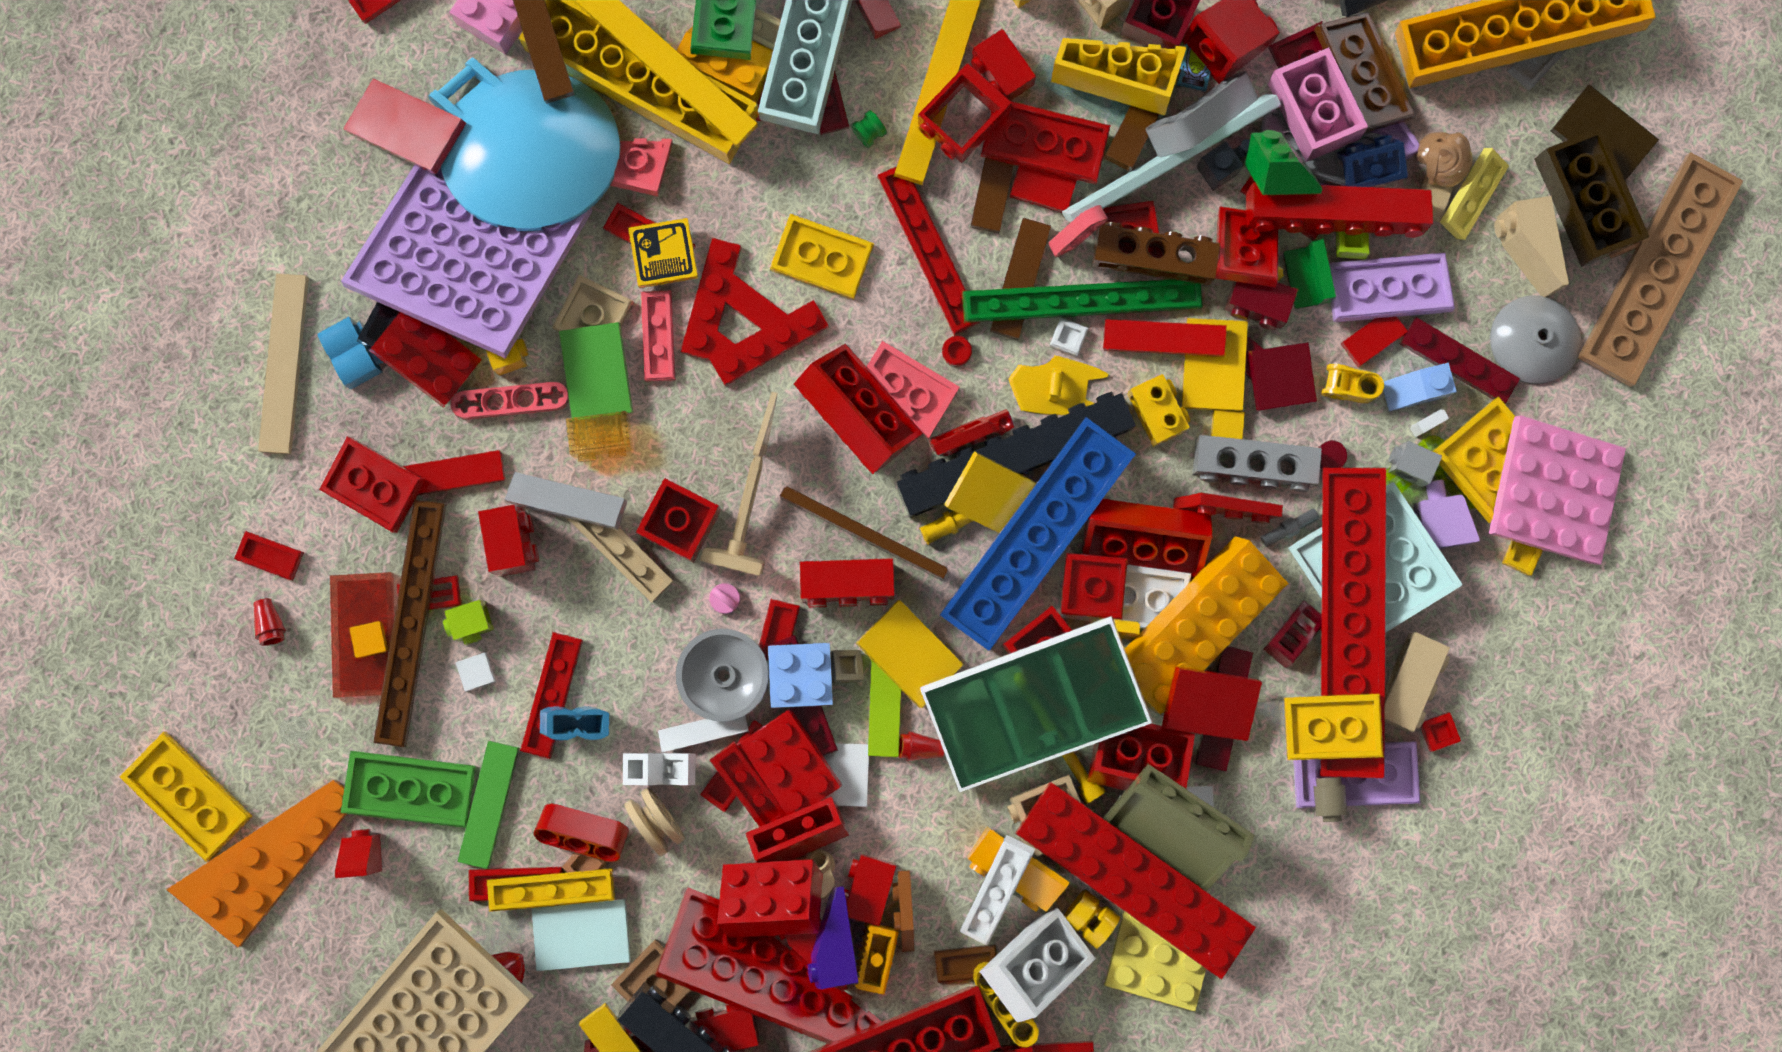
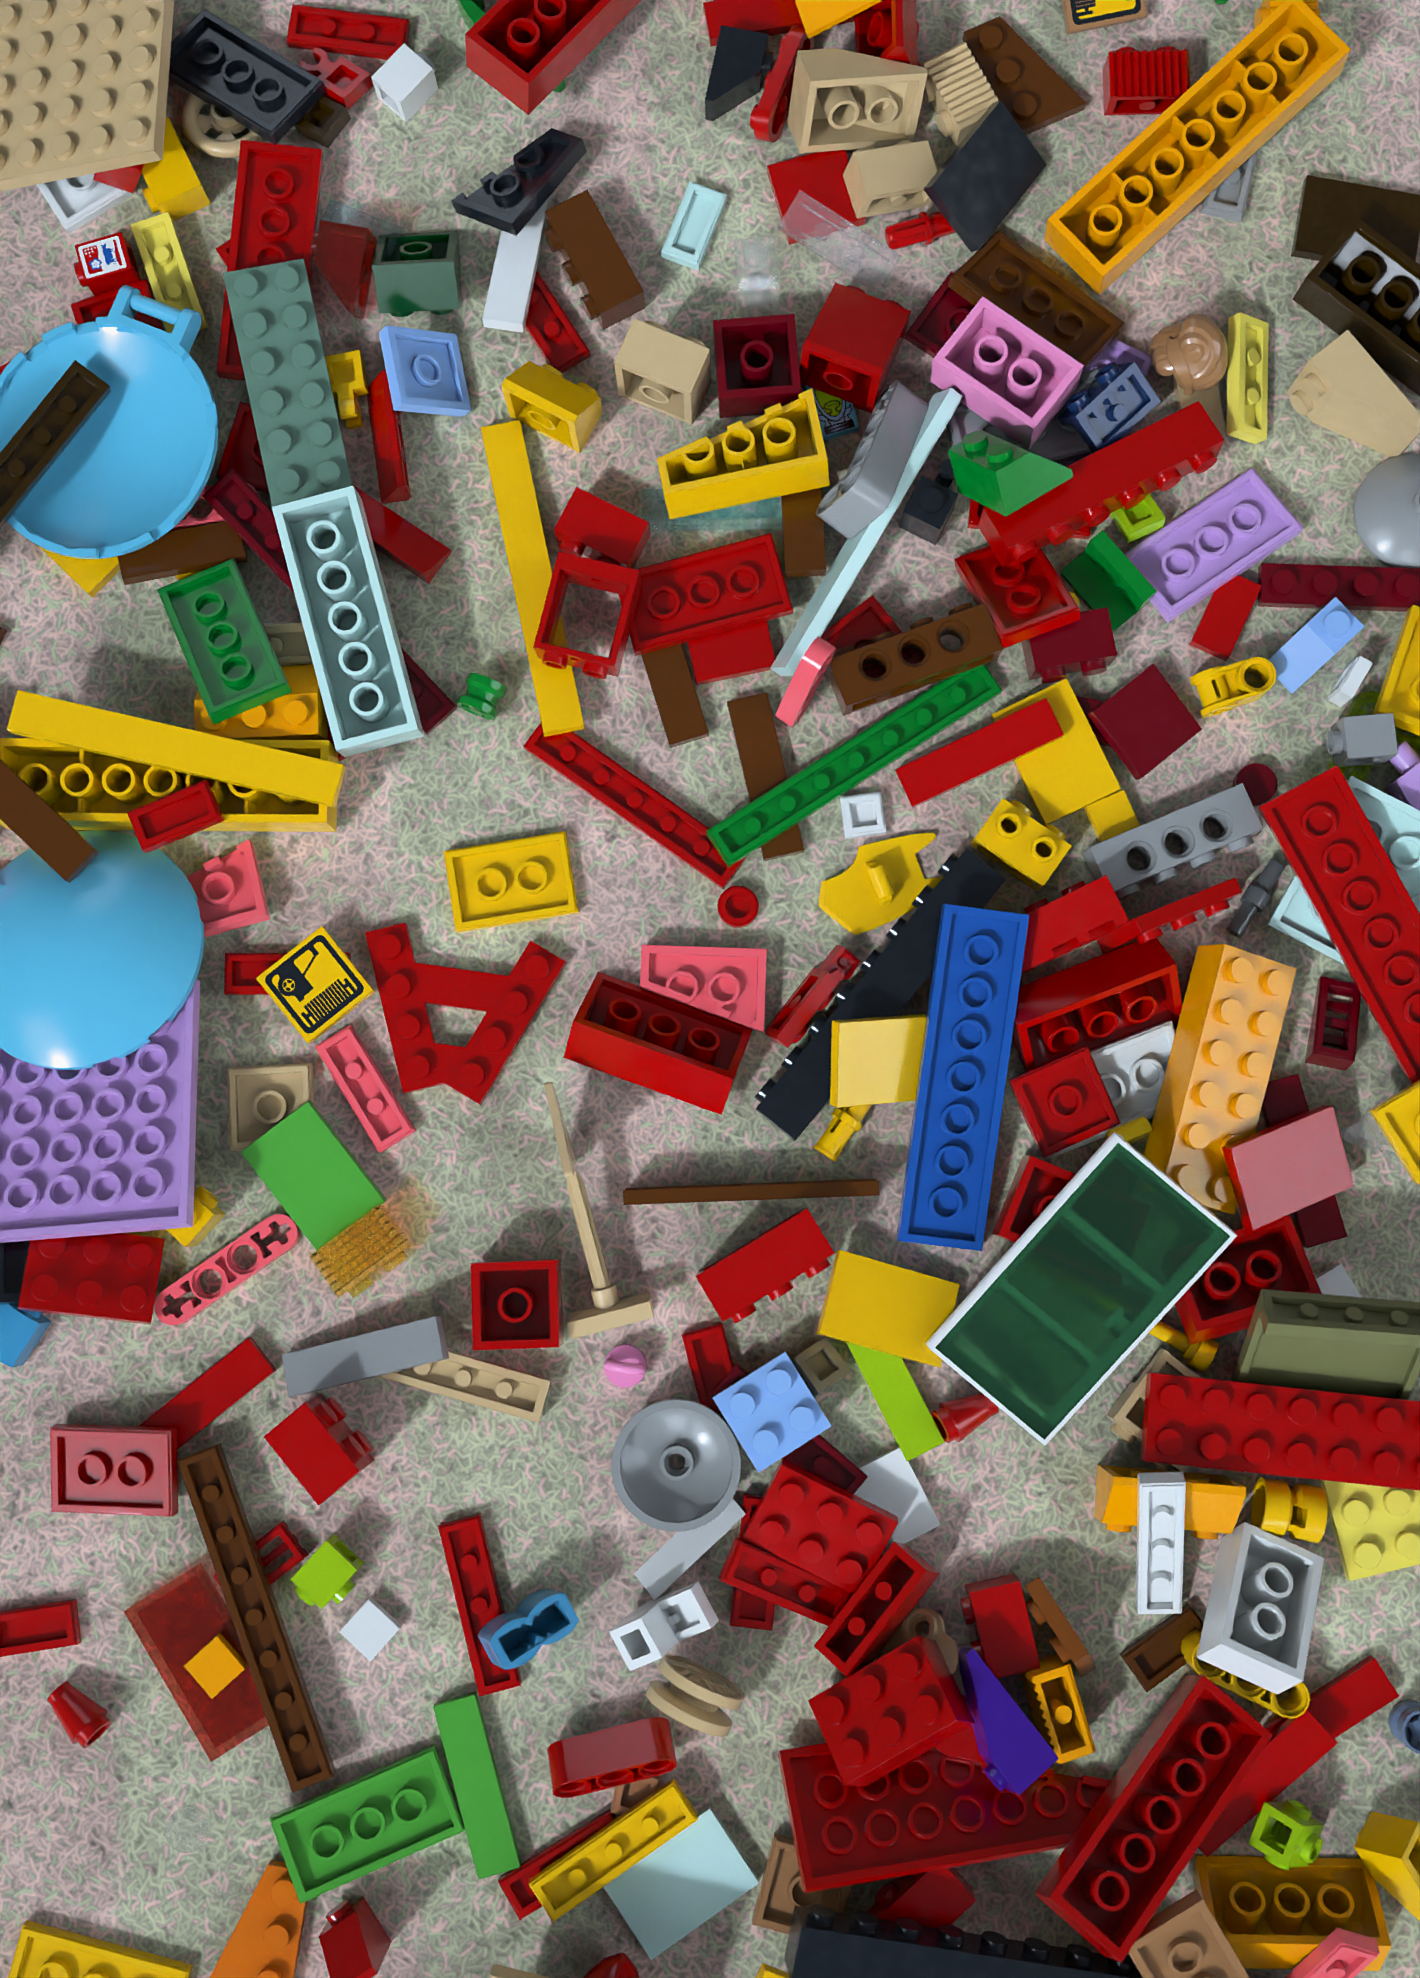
camera: 20 degrees left, 0 degrees up
(634, 98) = (175, 816): none -> red tile
(1158, 475) = (1071, 921): none -> red wedge

